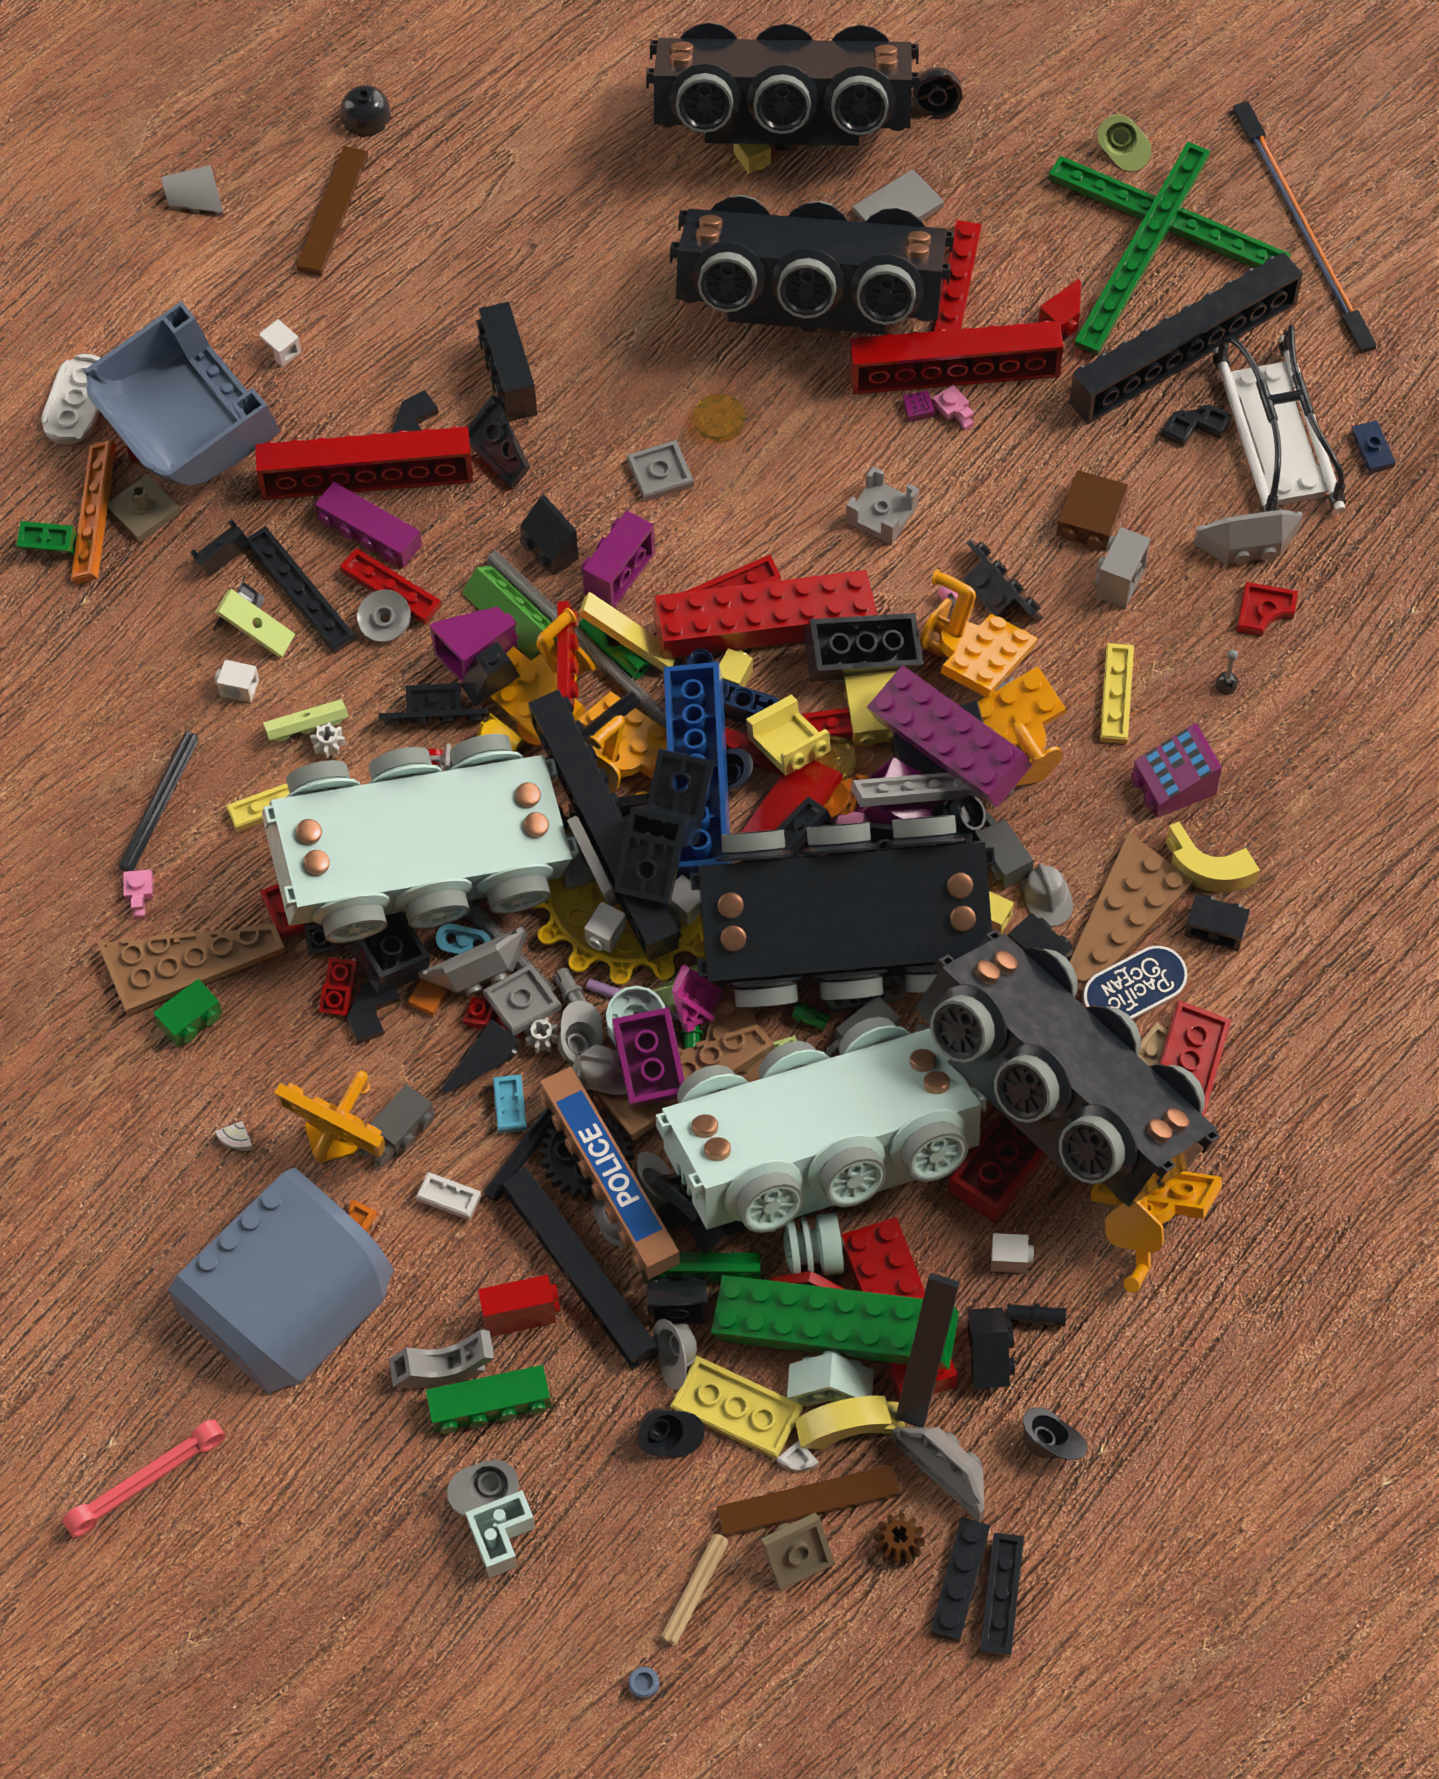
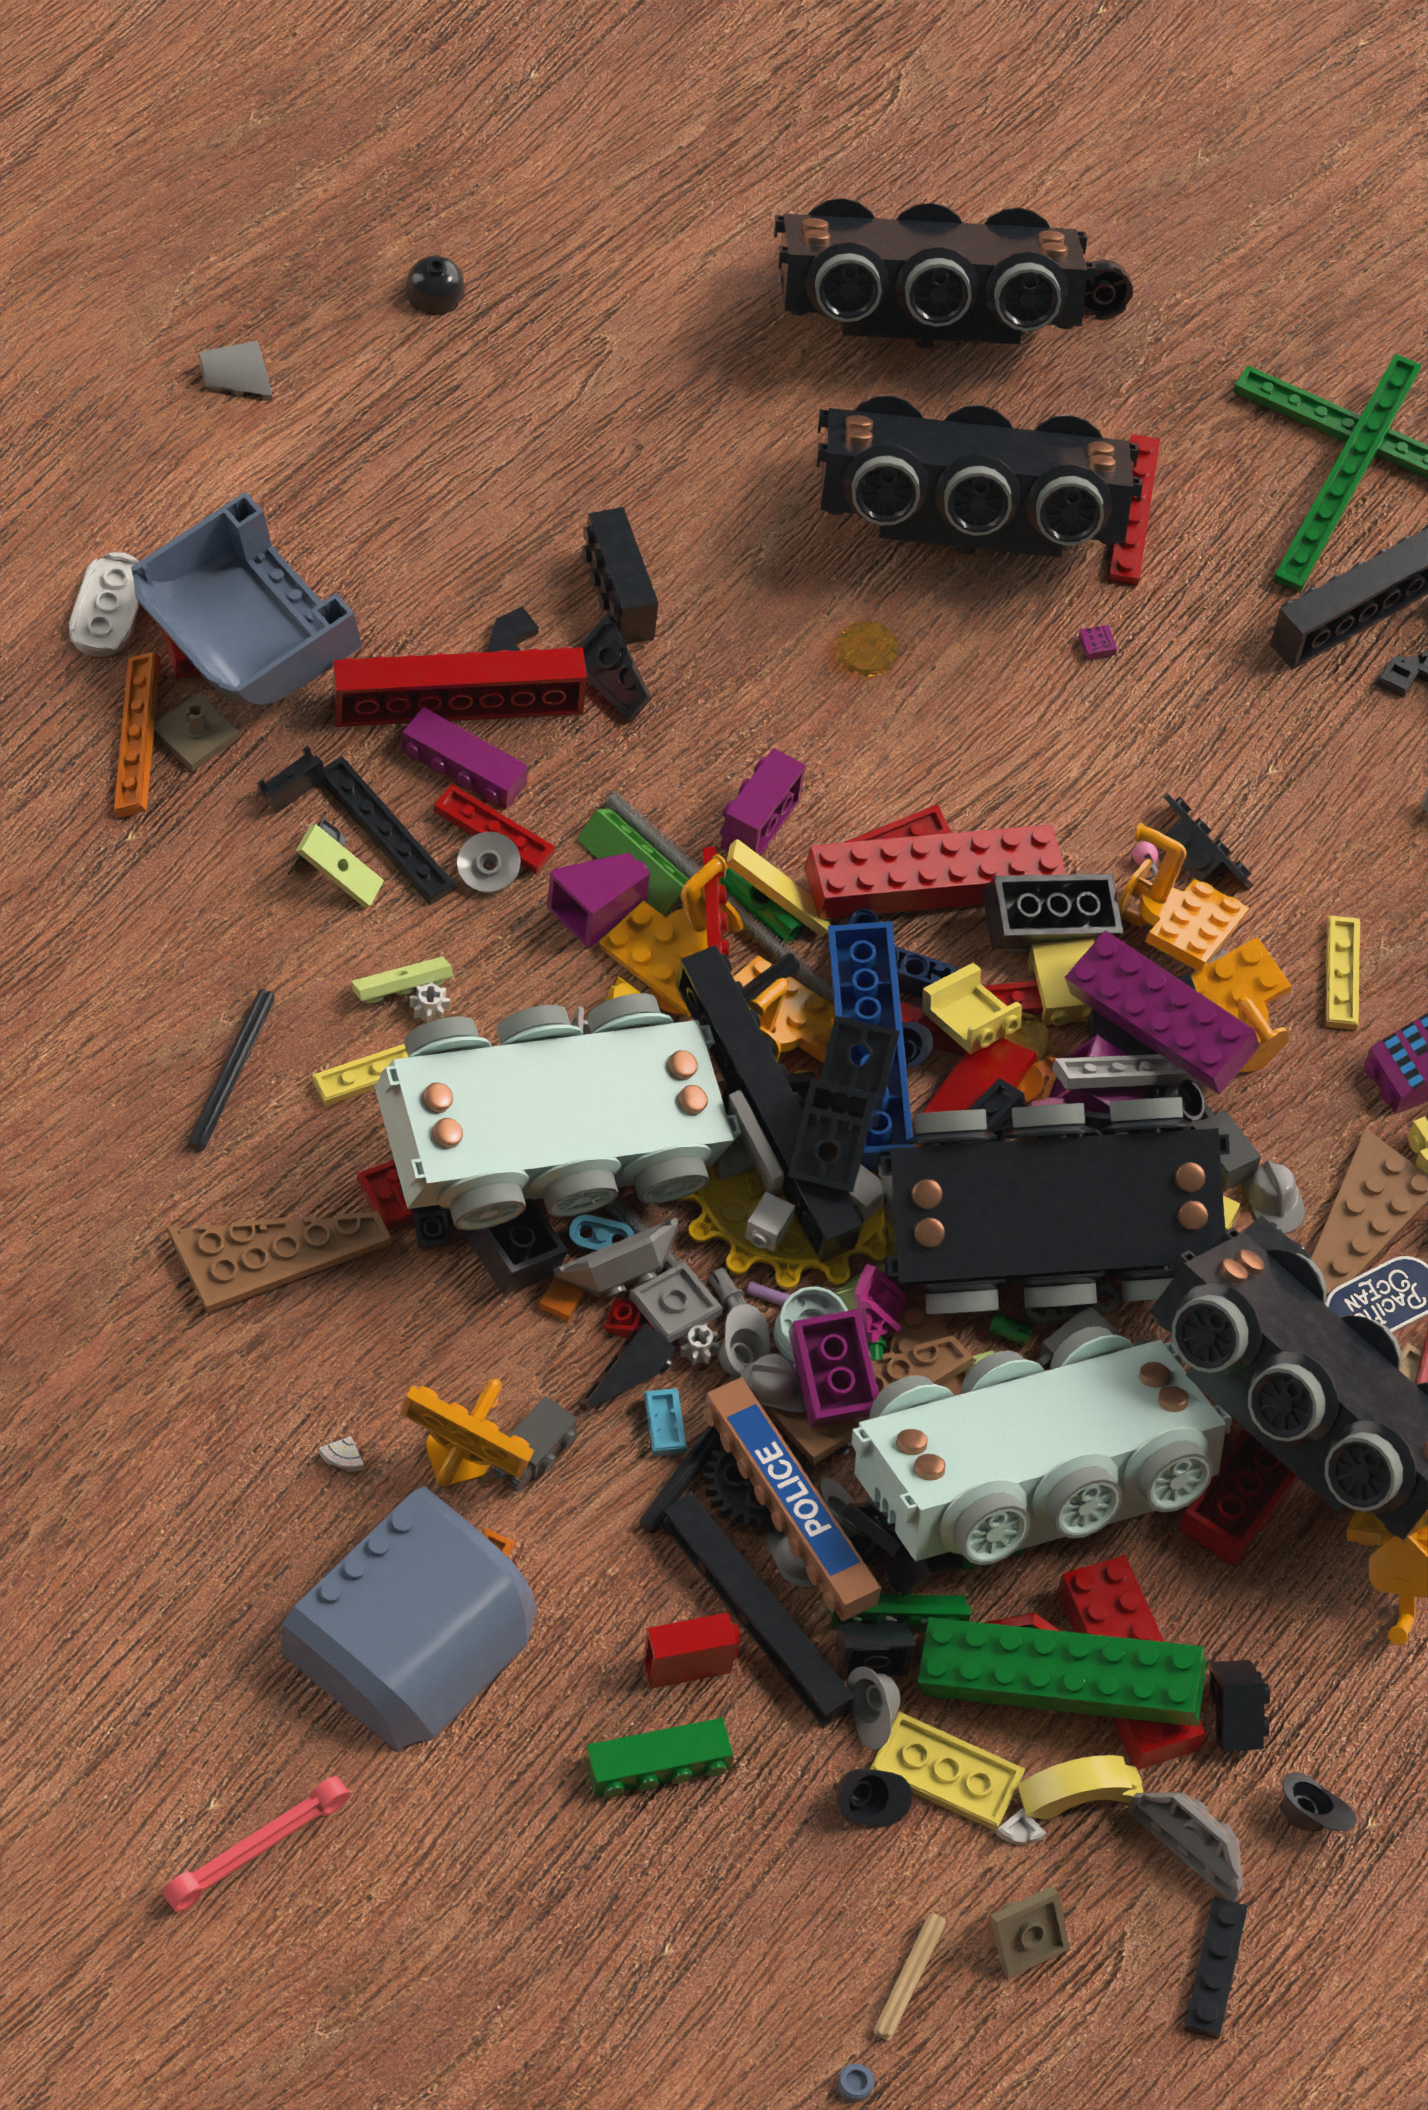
camera: 10 degrees left, 5 degrees down
(46, 537) = (84, 760): green hinge -> none
(137, 889) = (212, 1167): bright pink plate -> none
(188, 1013) = (281, 1311): green brick -> none
(237, 681) = (318, 932): white brick -> none
(282, 341) = (353, 544): white panel -> none
(332, 210) = (401, 398): reddish brown tile -> none
(338, 986) = (456, 1284): red slope -> none
(363, 1013) = (487, 1319): black tile -> none
(433, 702) = (552, 962): black bracket -> none
(442, 1366) = (591, 1721): light grey arch -> none
(448, 1196) = (599, 1526): white plate -> none
(481, 1485) = (659, 1856): light grey piece -> none
(488, 674) = (619, 930): black slope -> none
(494, 1526) = (674, 1904): light aqua brick -> none
(549, 536) = (680, 776): black slope -> none
(660, 470) = (802, 706): light grey tile -> none
(736, 667) = (906, 930): light yellow brick -> none
(753, 156) = (891, 352): light yellow brick -> none
(808, 1499) = (1028, 1877): reddish brown tile -> none
(814, 1245) = (1038, 1586): light aqua wheel -> none
(828, 1379) = (1053, 1737): light aqua brick -> none
(881, 508) = (1062, 757): light grey panel -> none
(900, 1550) = (1132, 1913): reddish brown gear -> none
(905, 192) = (1069, 398): light grey tile -> none
(927, 1350) = (1179, 1699): black tile -> none
(953, 404) = (1139, 642): bright pink plate -> none
(955, 357) = (1140, 588): red brick -> none
(1002, 1595) = (1265, 1985): black plate -> none
(1010, 1253) = (1255, 1599): white brick -> none
(1036, 1314) = (1289, 1669): black pin -> none
(1064, 308) = (1259, 541): red slope -> none
(1091, 510) = (1304, 765): reddish brown brick -> none
(1122, 567) = (1343, 829): light grey brick -> none
(1124, 142) = (1320, 353): yellowish green piece -> none

